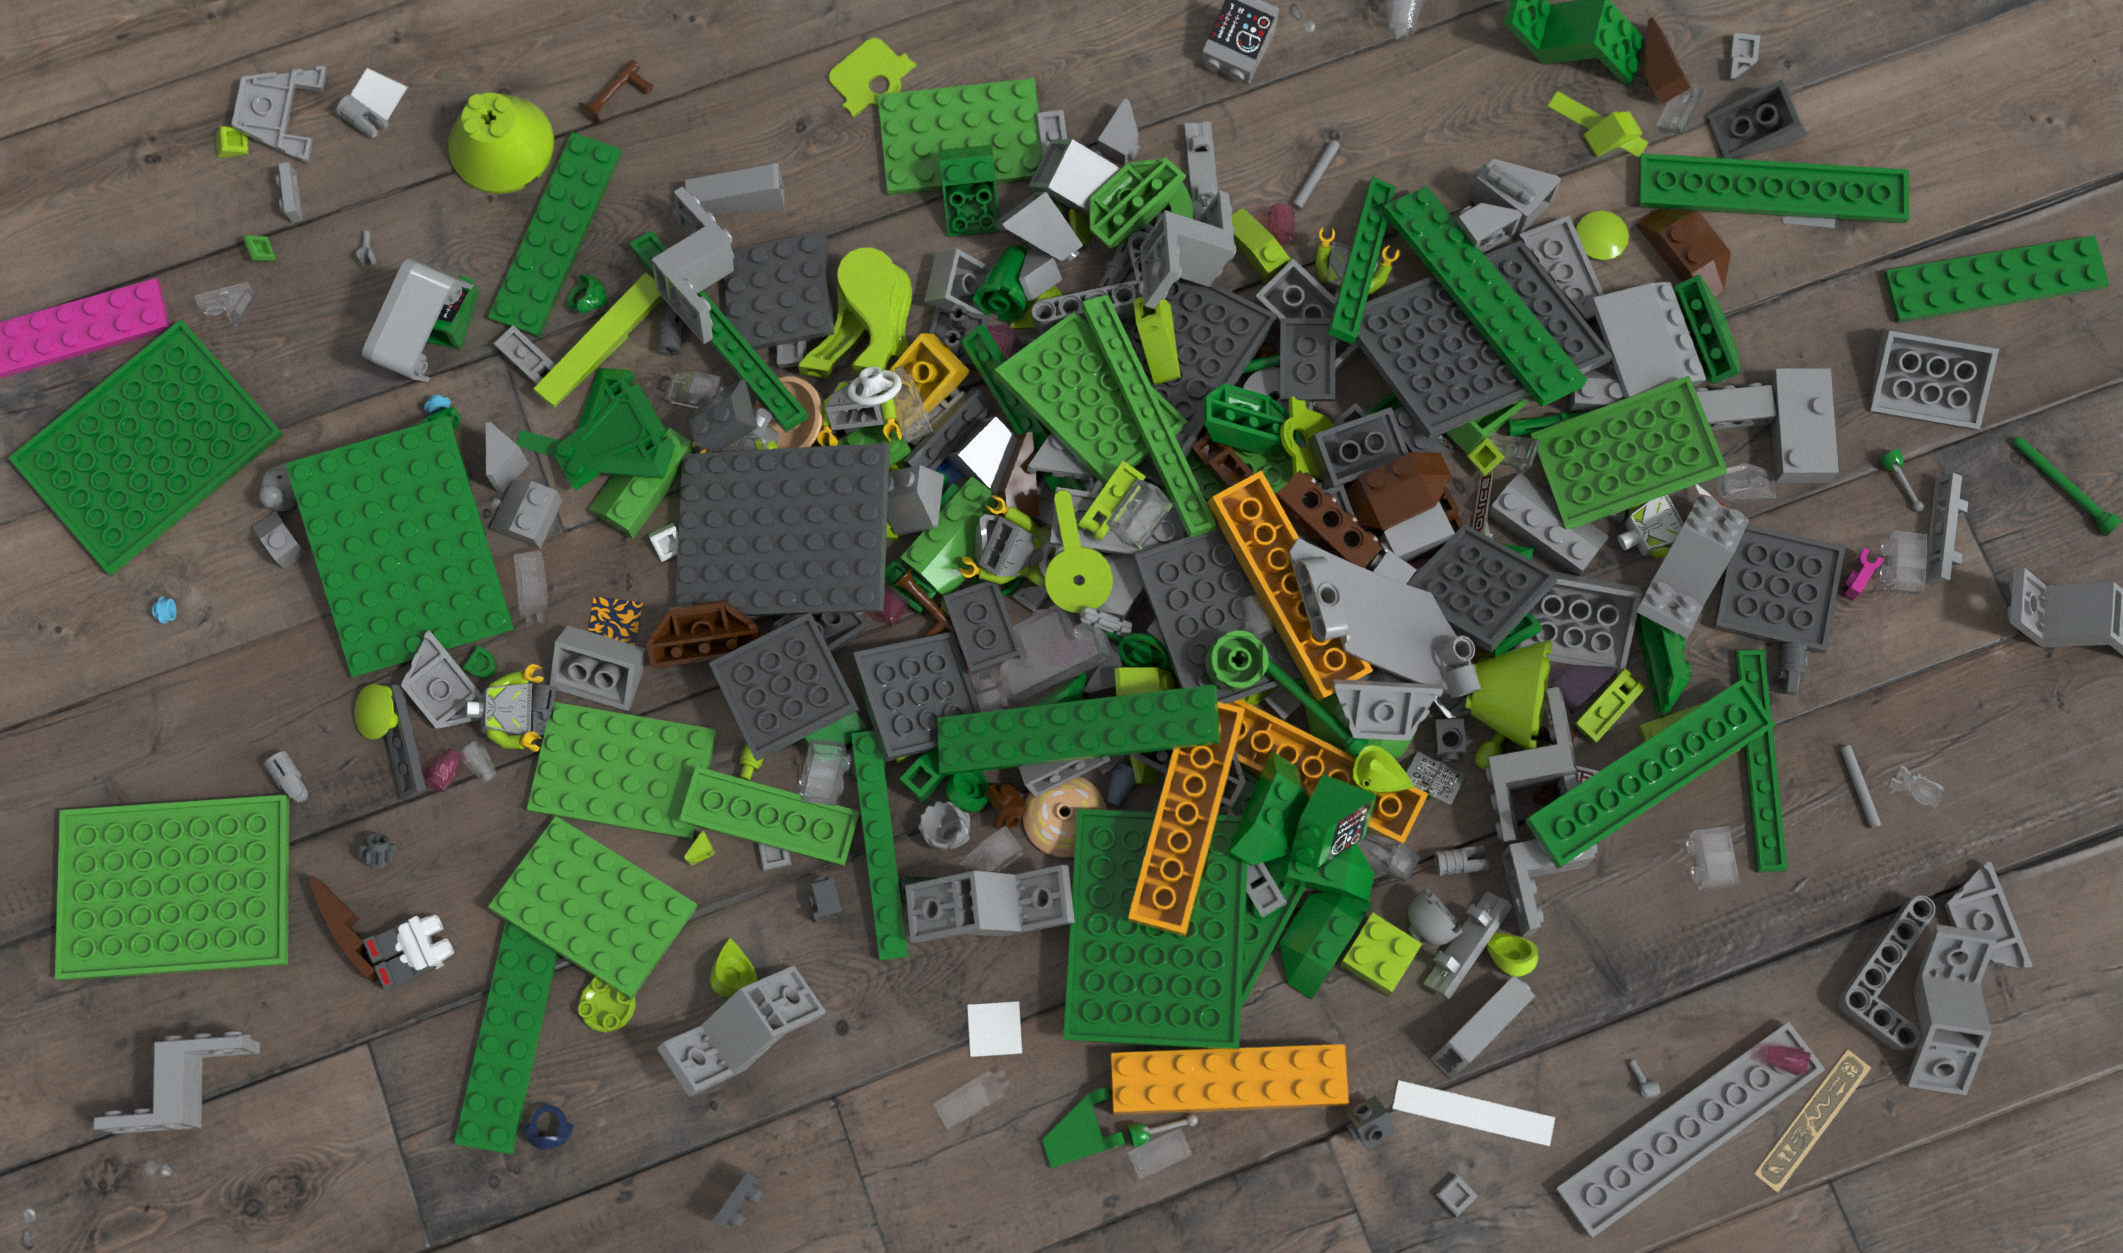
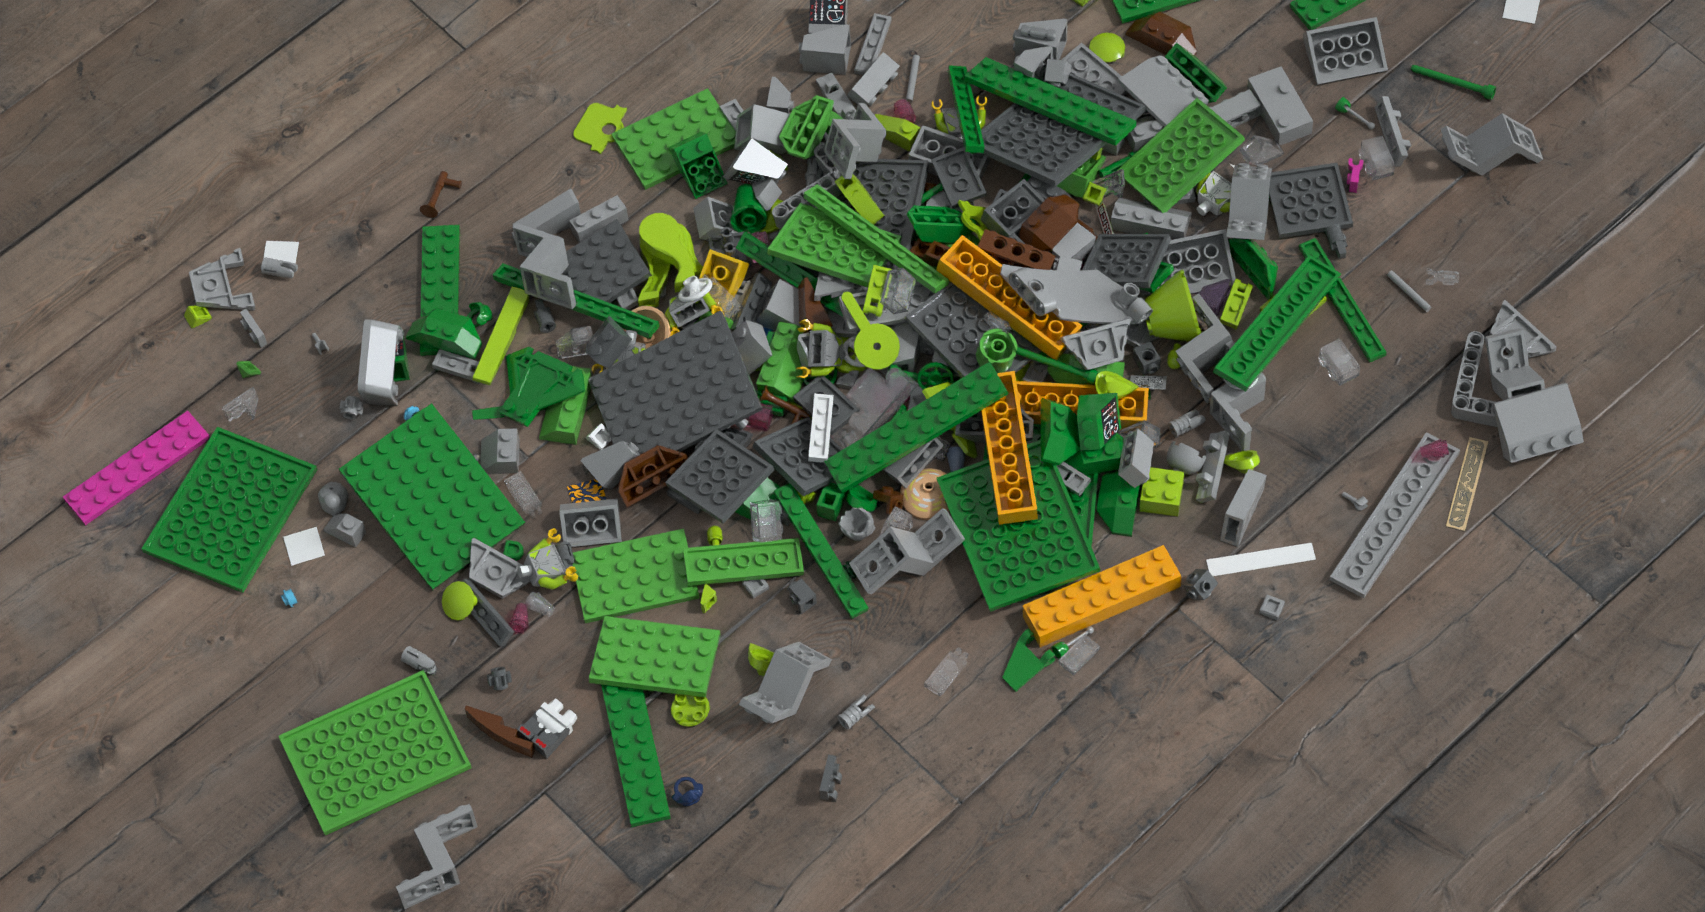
camera: 20 degrees left, 15 degrees down
(219, 539) = (304, 546): none -> white sticker
(360, 366) = (351, 407): none -> light grey gear
(500, 143) = (377, 249): lime cone -> none
(503, 458) = (473, 422): light grey slope -> none
(531, 306) = (446, 332): none -> green wedge
(654, 593) = (609, 462): none -> light grey slope
(803, 217) = (597, 218): none -> light grey brick
(815, 1110) = (853, 713): none -> light grey hinge
(955, 665) = (820, 428): none -> white plate
(994, 1029) = (942, 629): white sticker -> none
(1105, 621) = (905, 366): light grey axle -> none
(1215, 88) = (826, 50): none -> light grey slope
(1260, 159) = (874, 80): none -> light grey brick
(1284, 101) = (873, 43): none -> light grey tile
(1362, 900) = (1136, 458): none -> light grey brick
(1513, 252) = (1057, 72): none -> light grey slope
(1953, 1085) = (1537, 423): none -> light grey slope

